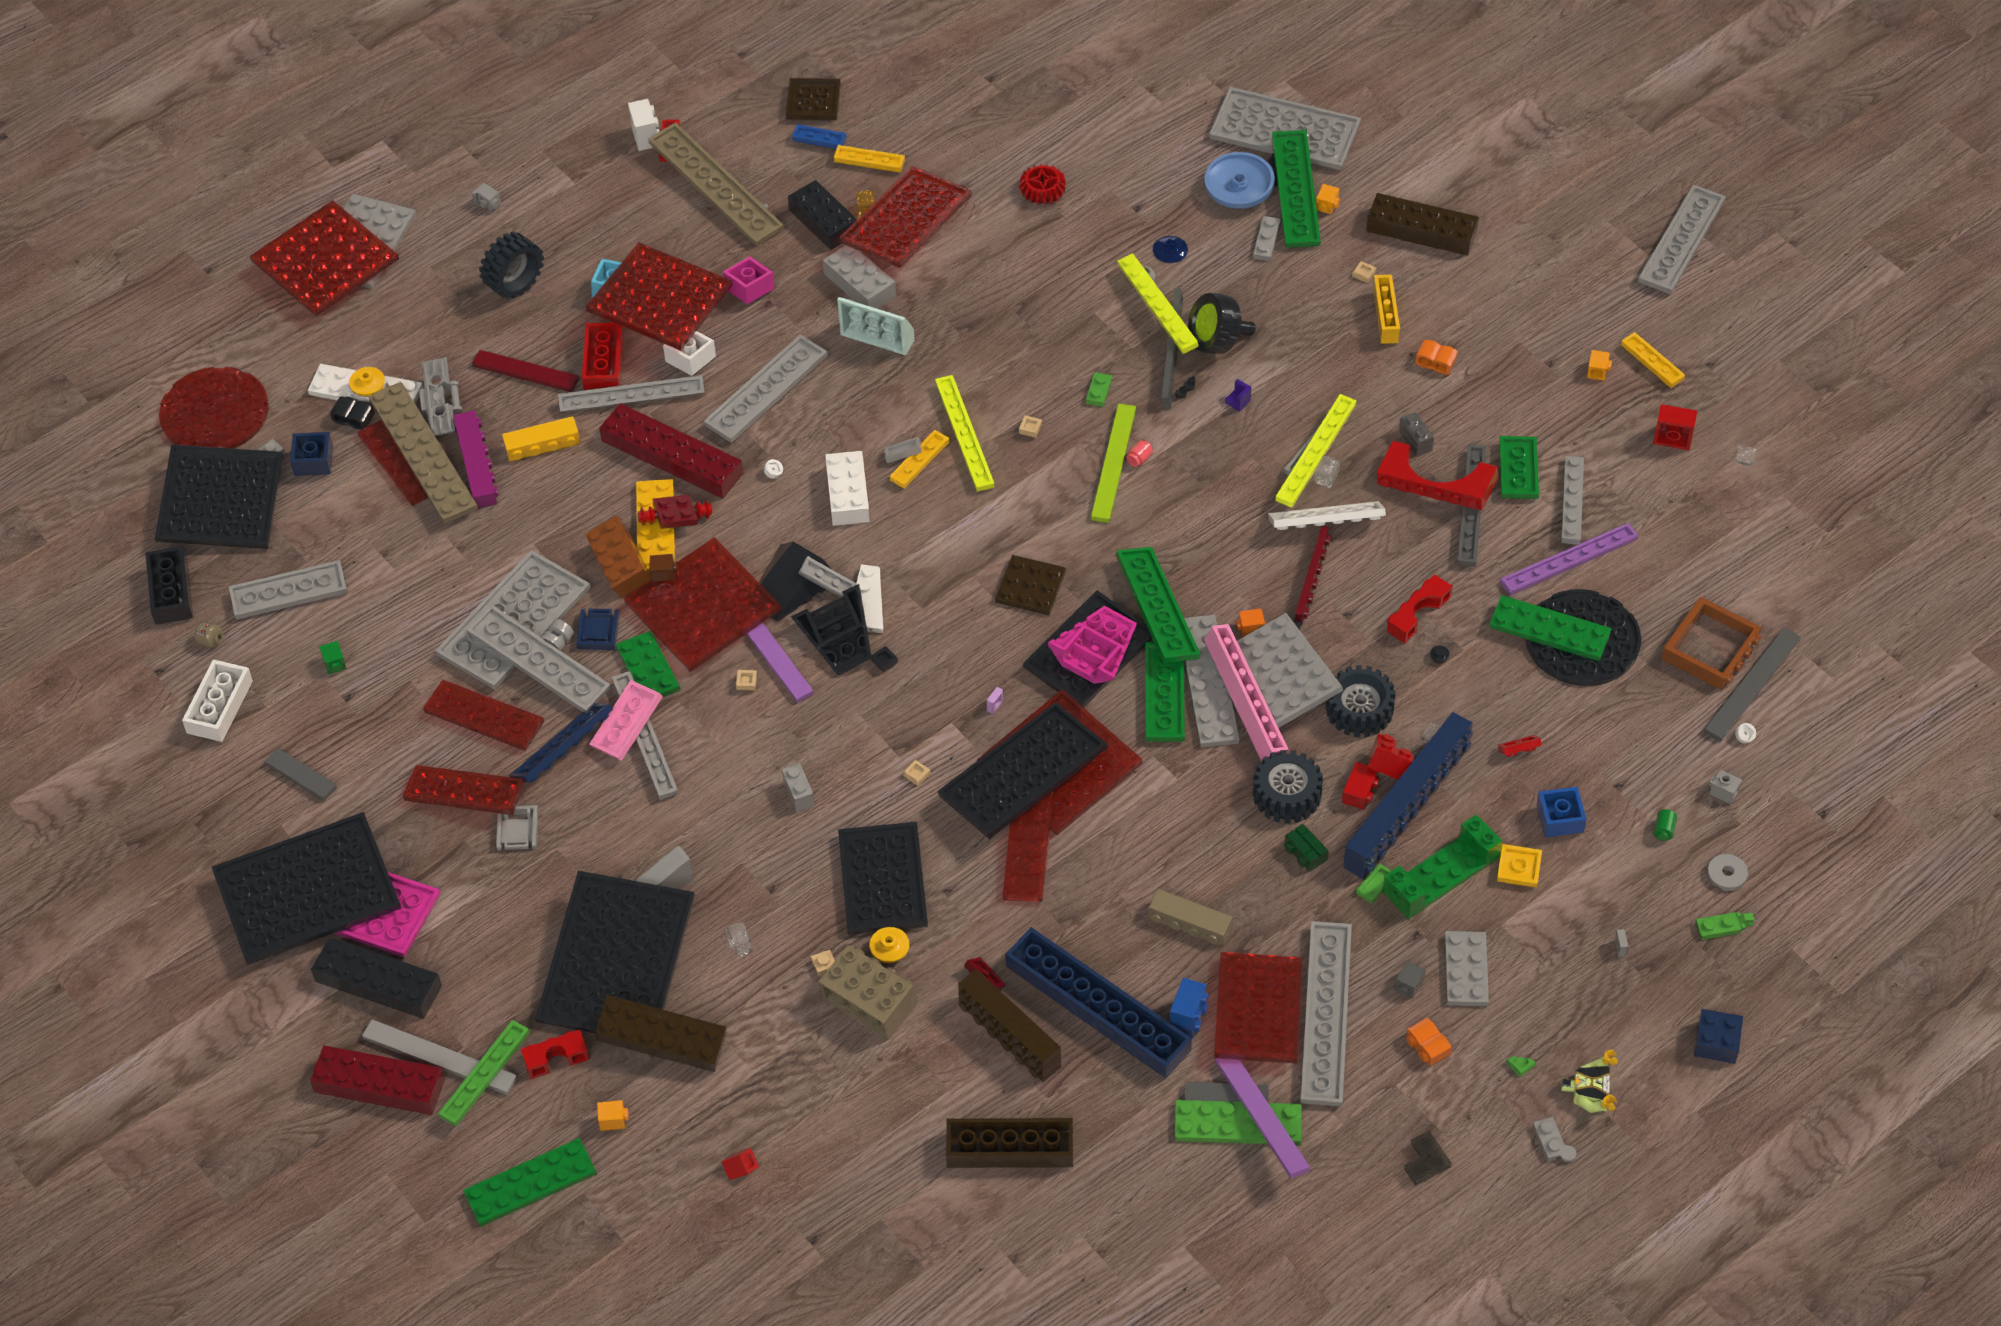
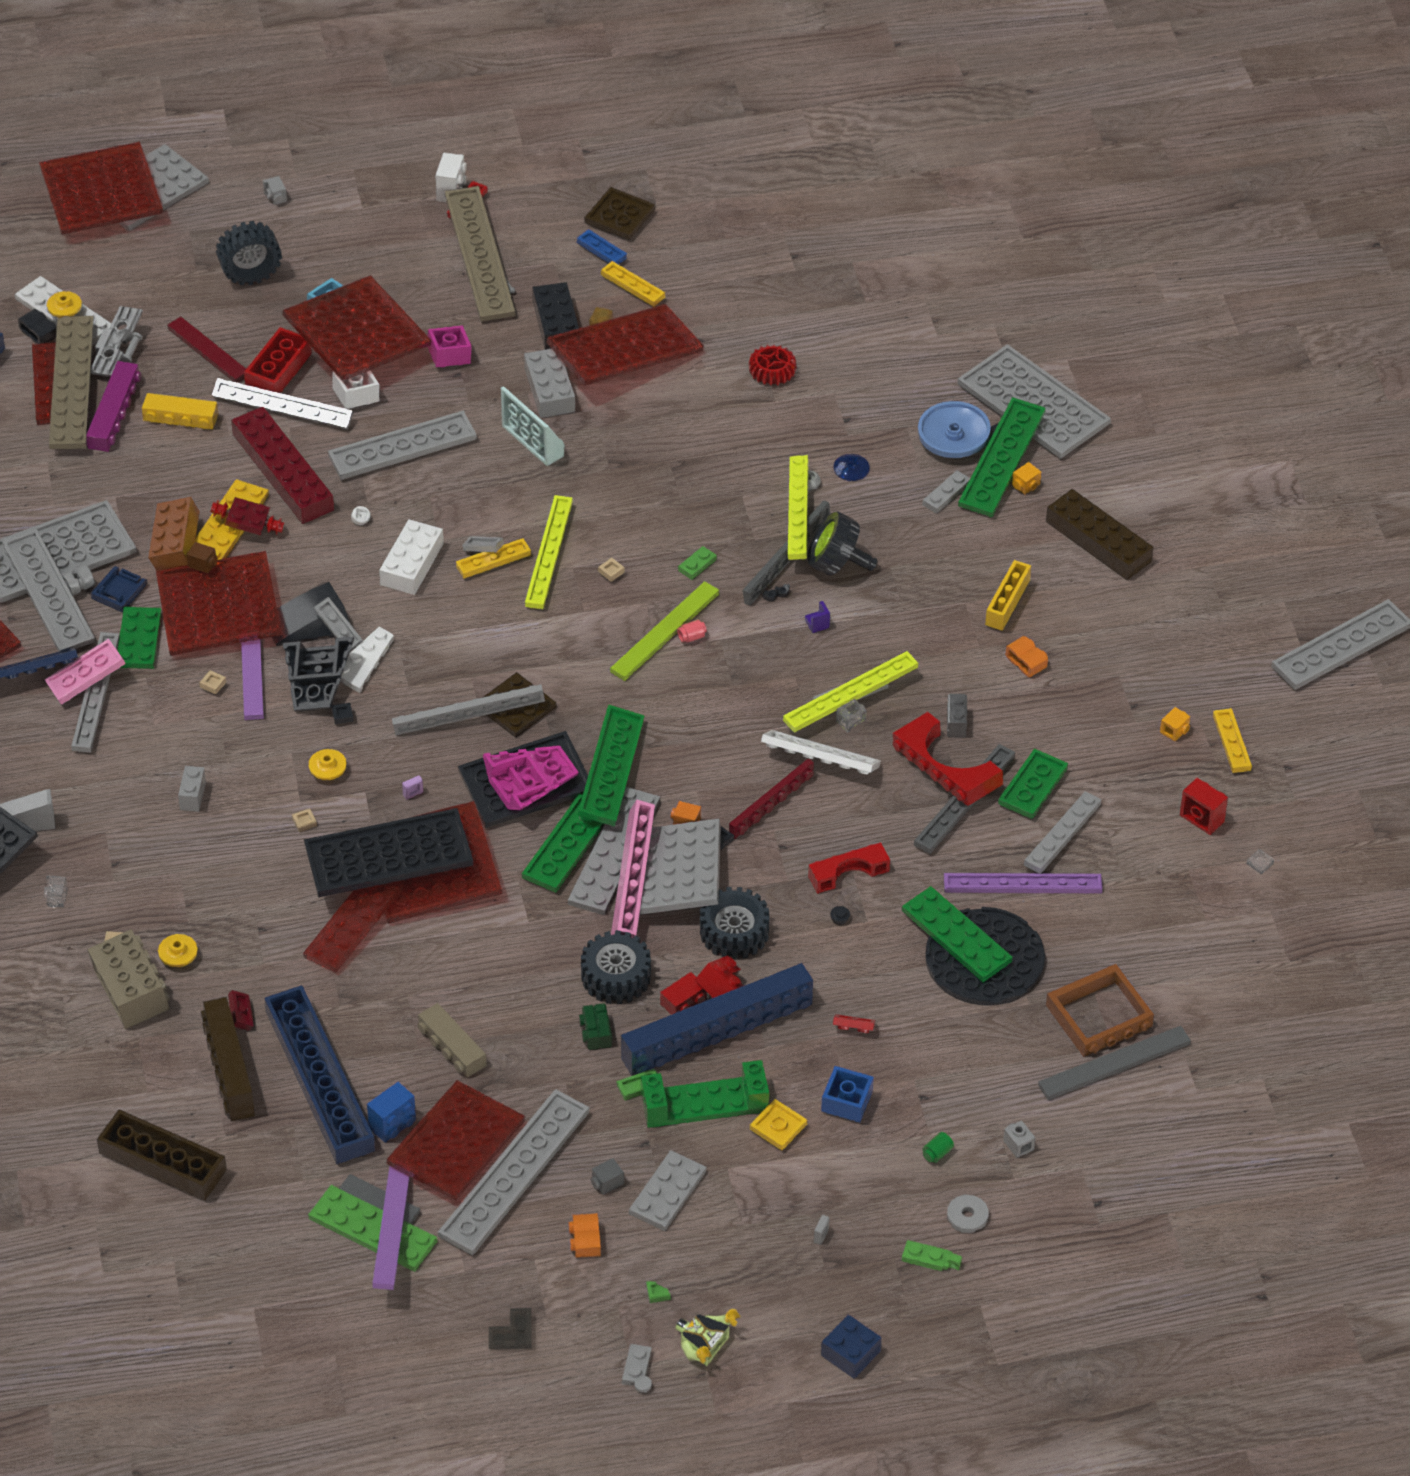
camera: 25 degrees right, 5 degrees down
(882, 877) = (212, 893): black plate -> none
(904, 712) = (327, 764): none -> yellow piece
(998, 607) = (468, 709): none -> light grey plate
(1364, 272) = (1017, 554): tan tile -> none
(1745, 733) = (1074, 1101): white tile -> none

